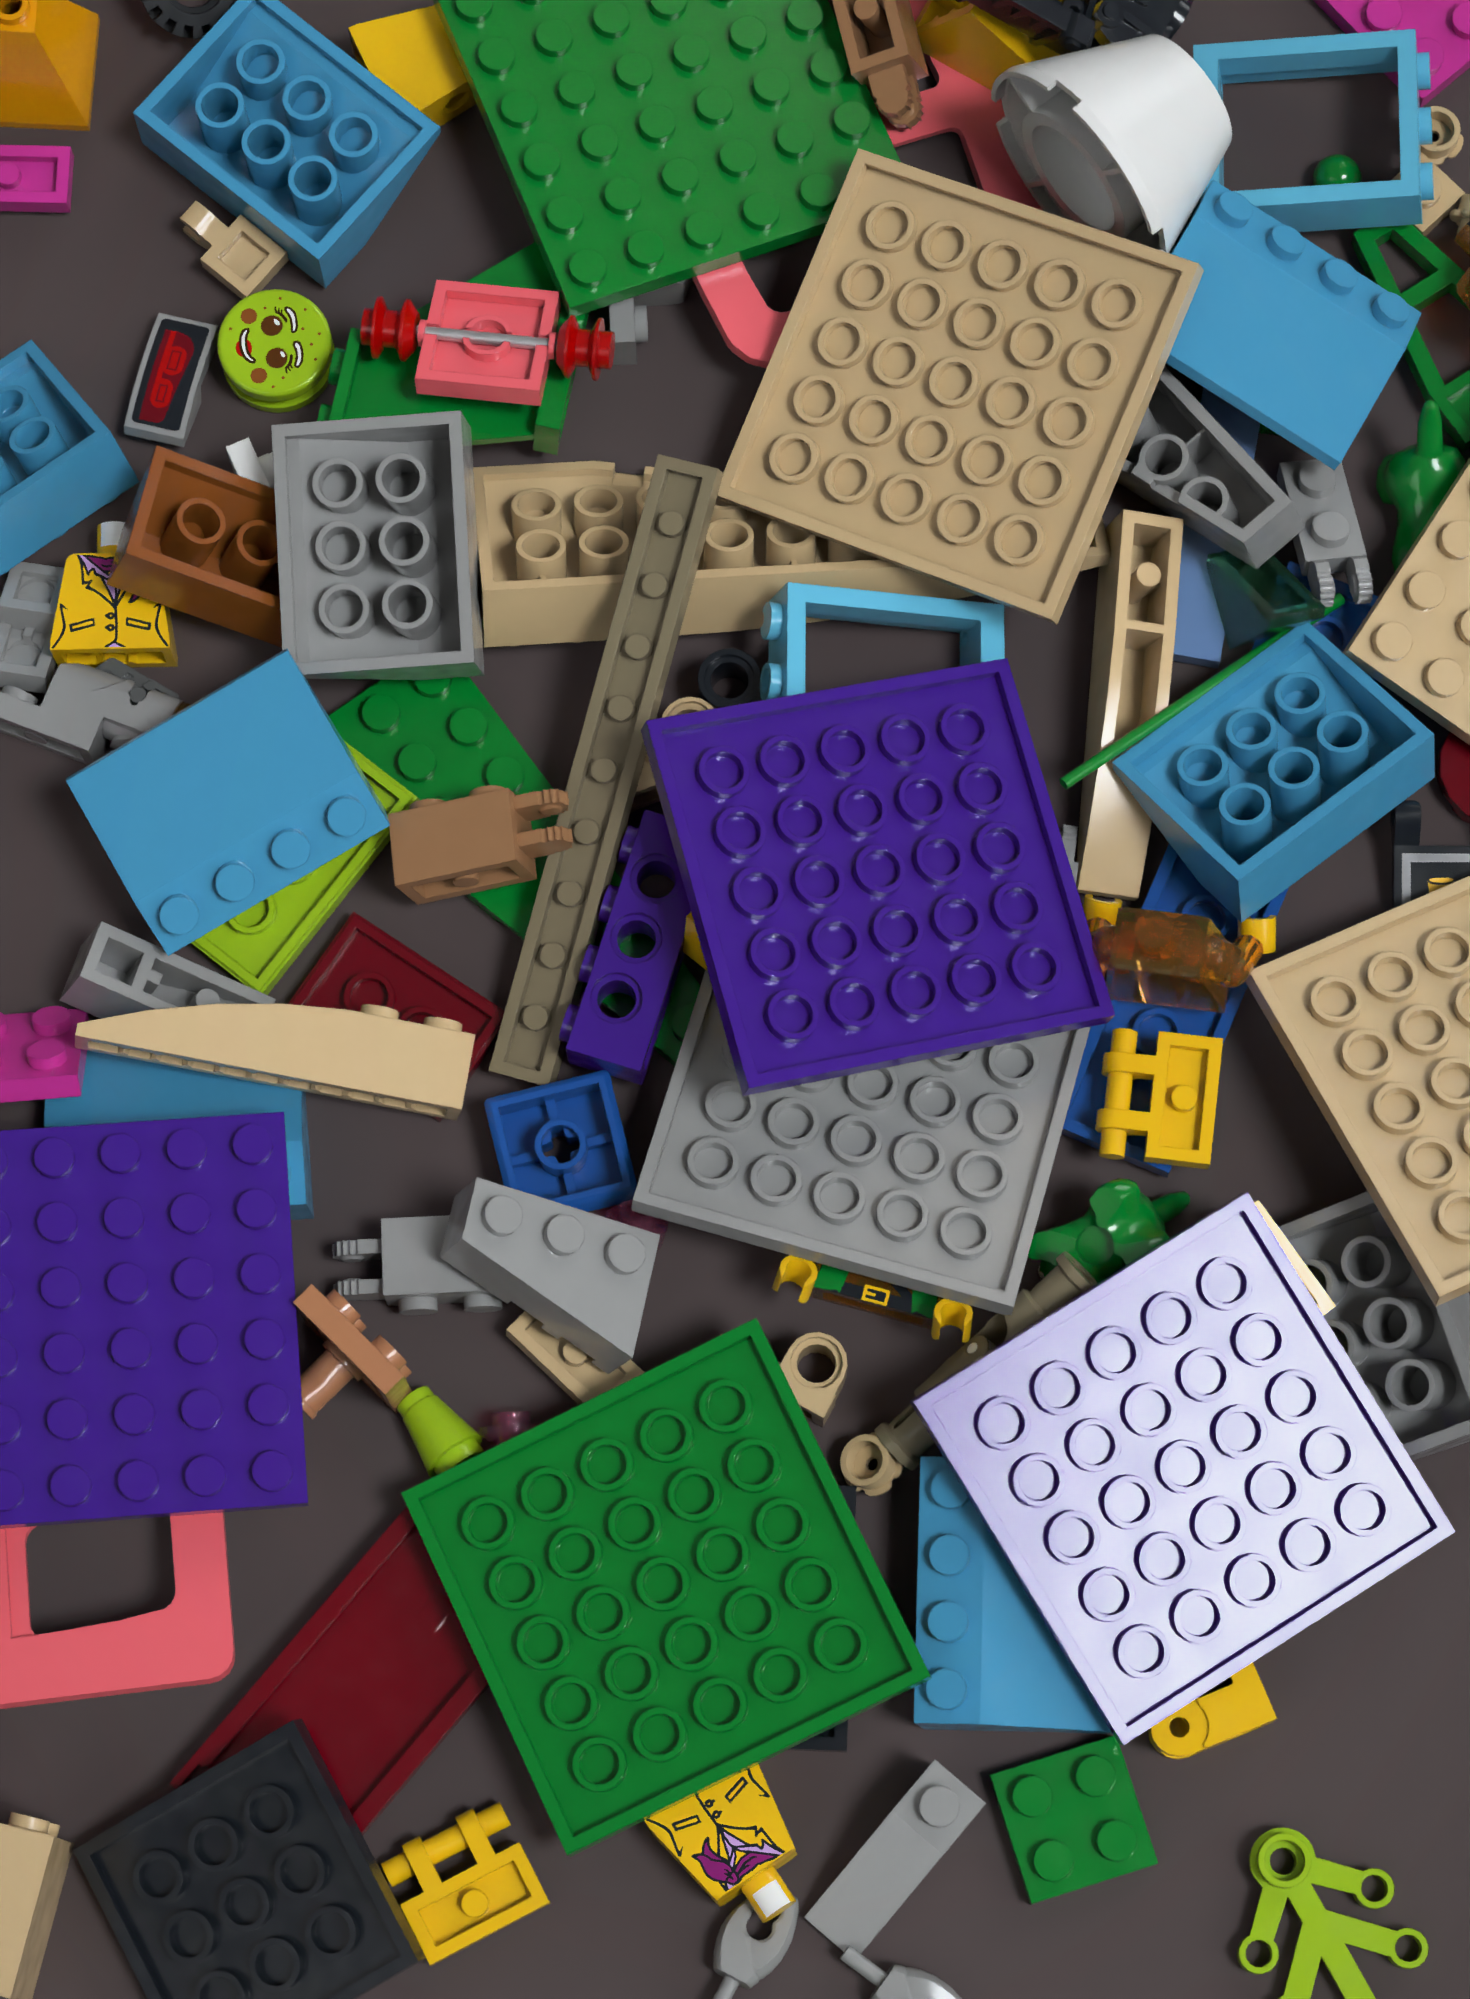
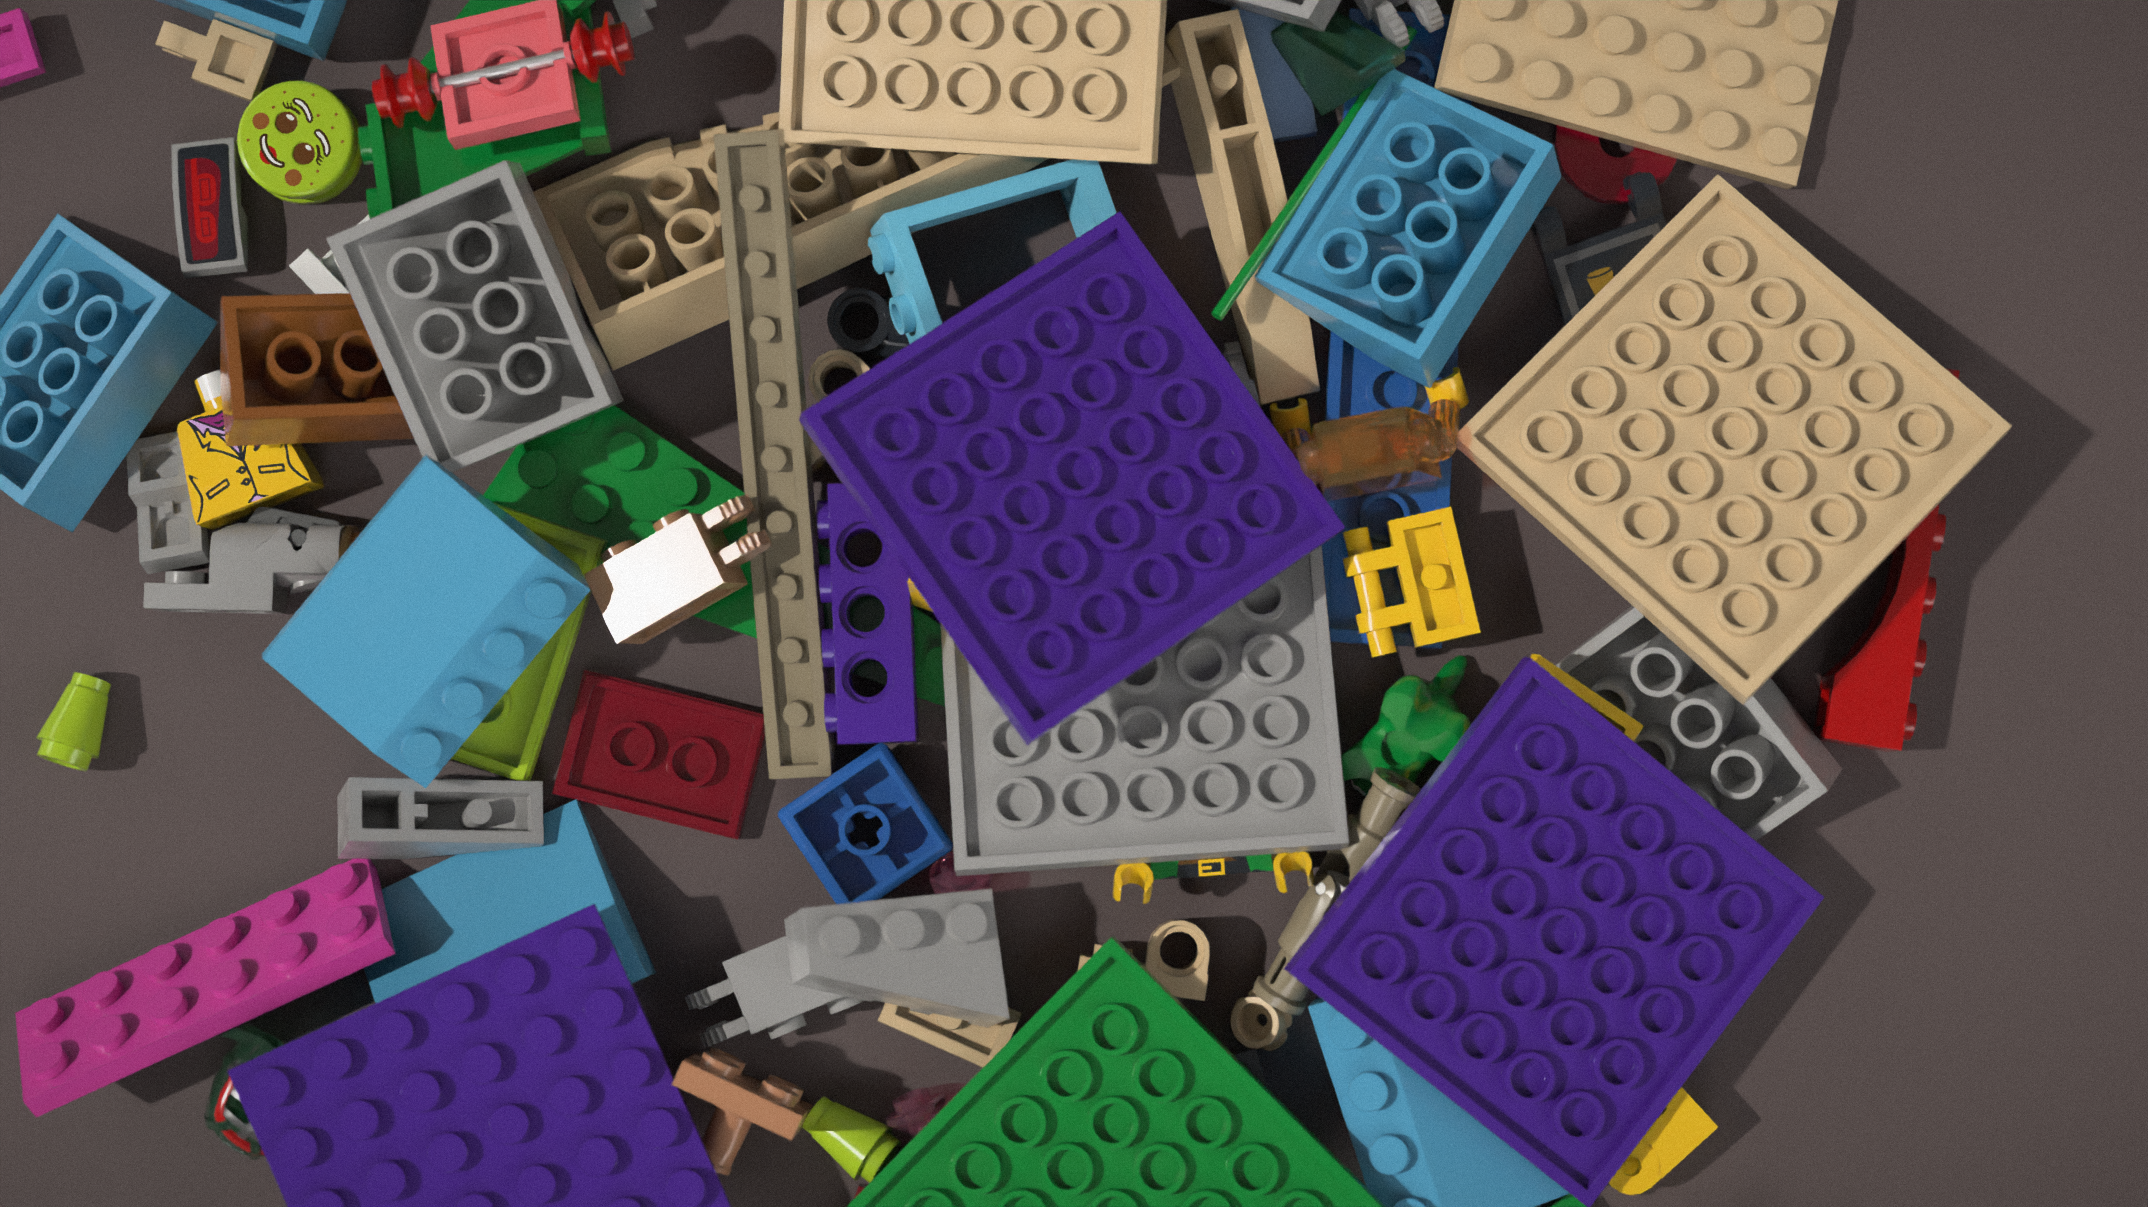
camera: 20 degrees left, 10 degrees up
(302, 1048) = (596, 827): tan slope -> none

